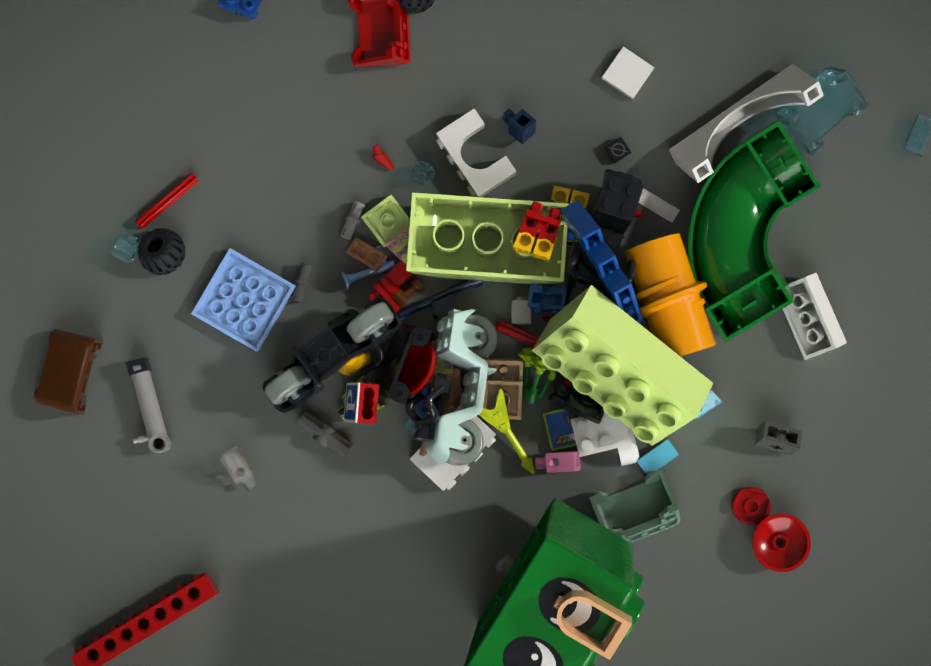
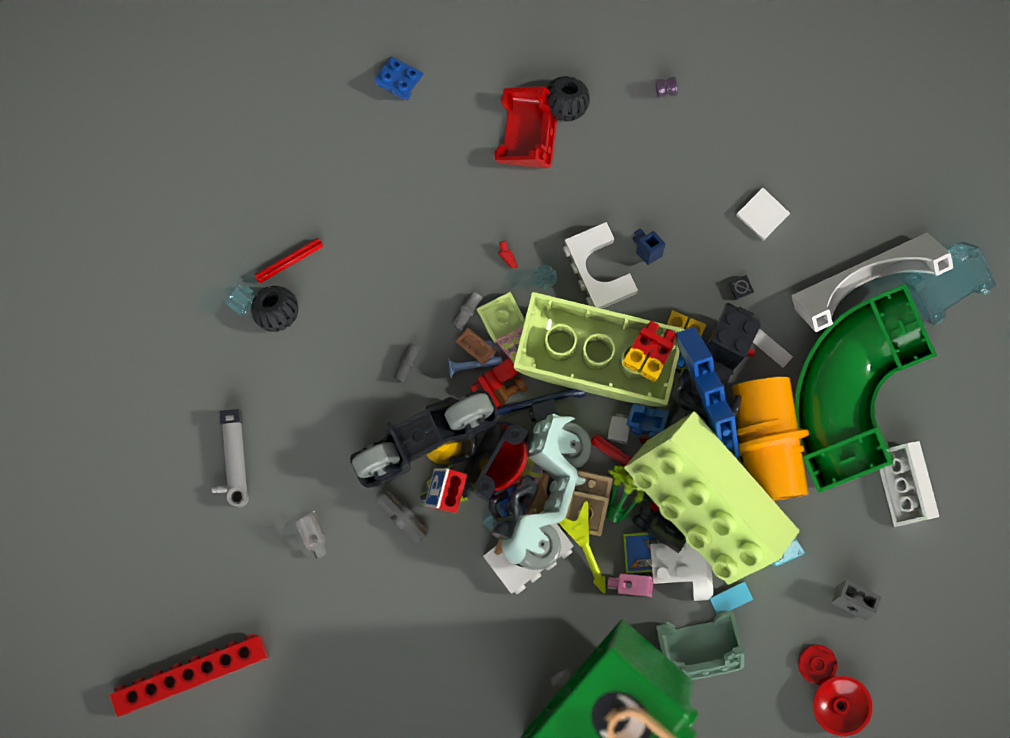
camera: 10 degrees right, 5 degrees down
(67, 371) = (160, 409): reddish brown windscreen -> none
(243, 300) = (346, 370): light blue plate -> none

